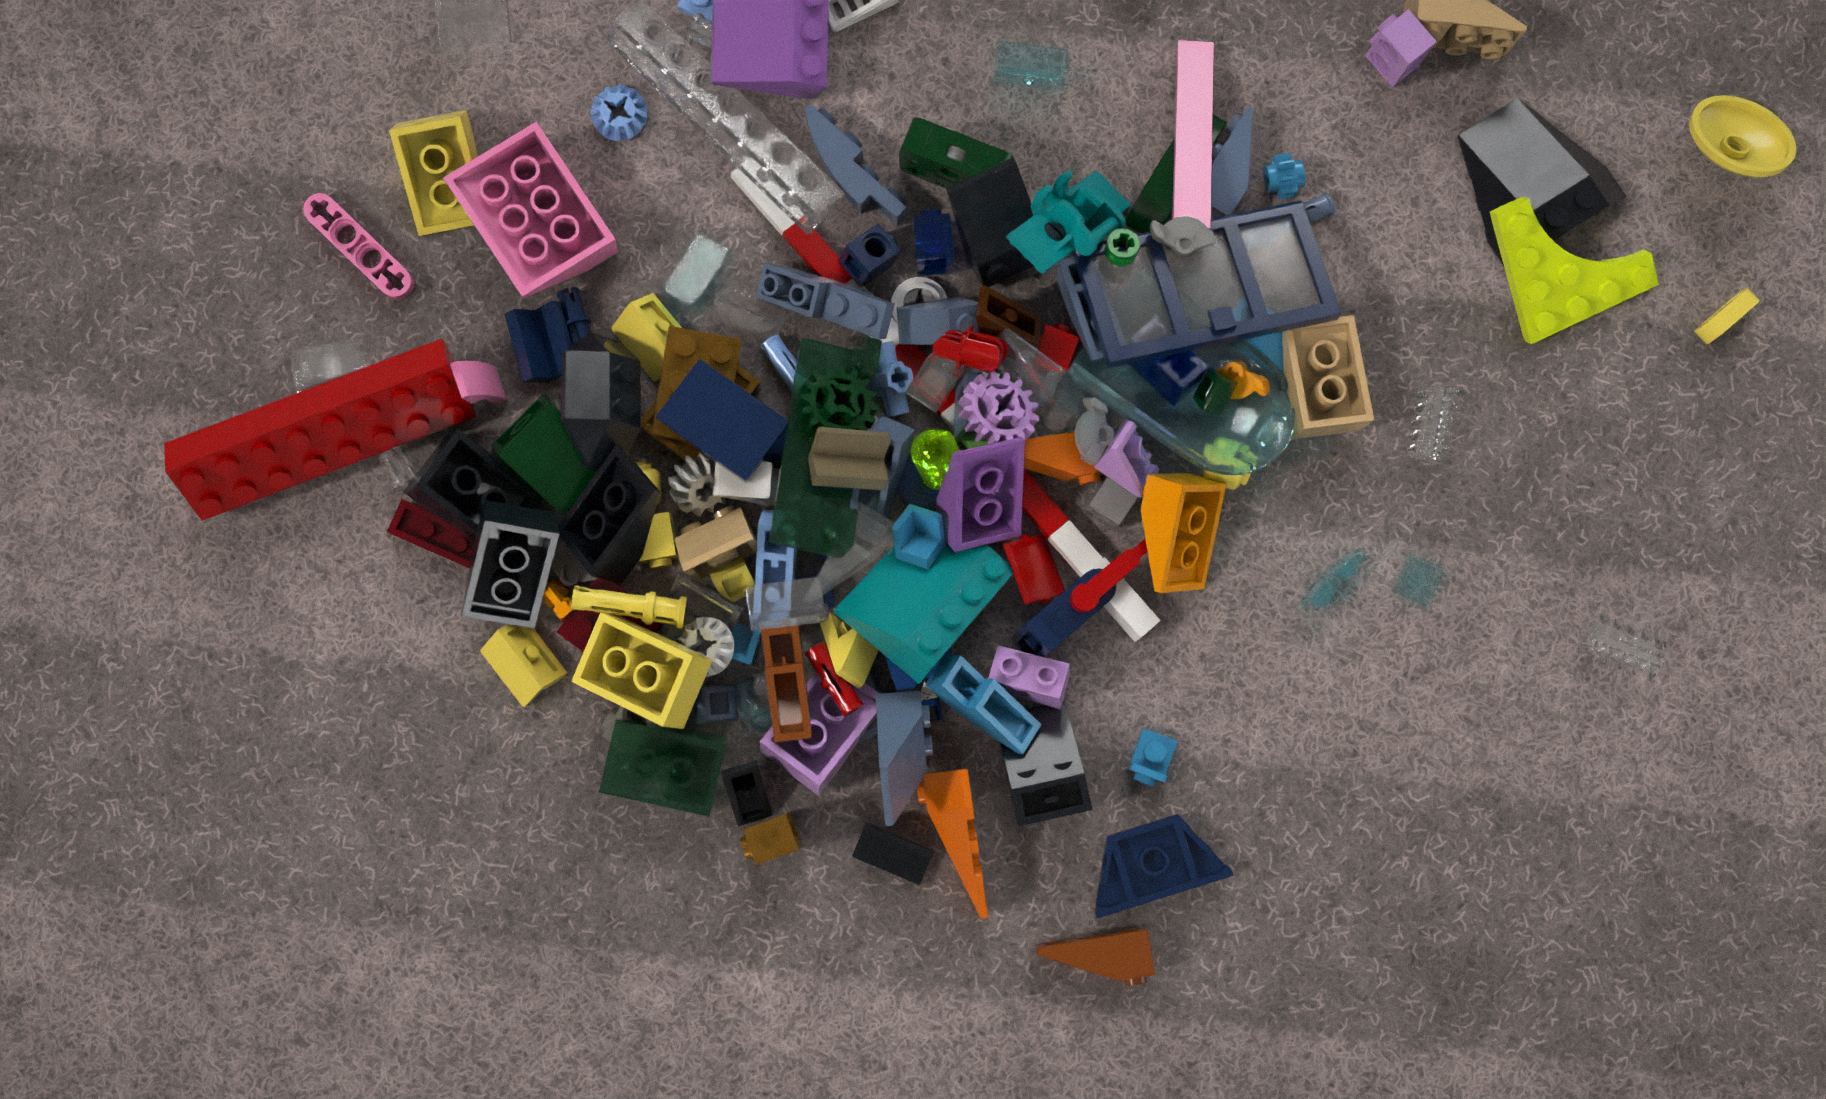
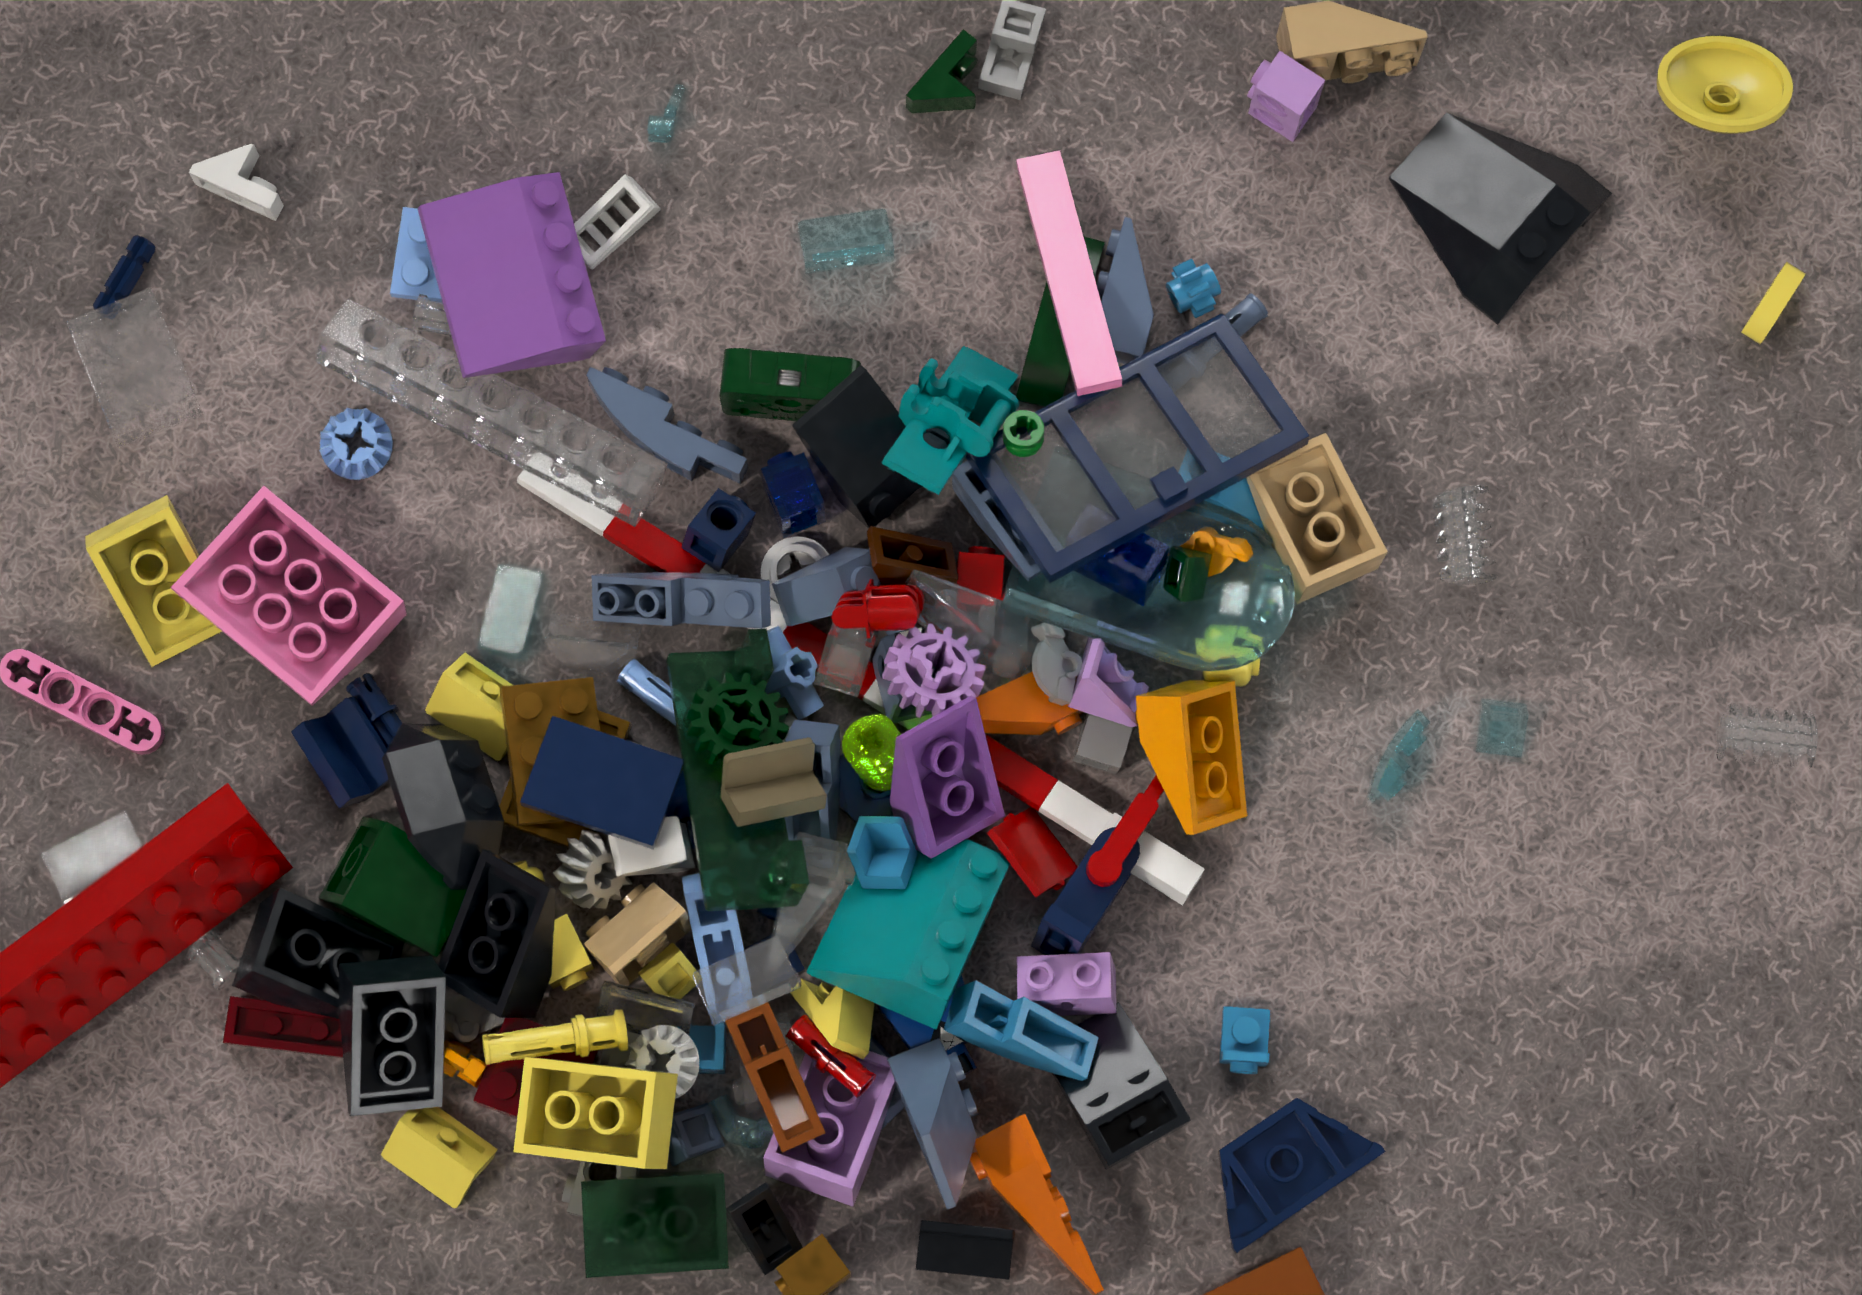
camera: 20 degrees left, 5 degrees down
(478, 381) = (285, 823): bright pink slope -> none
(1183, 234) = (1092, 397): light grey piece -> none
(1555, 286) = (1557, 327): neon yellow plate -> none

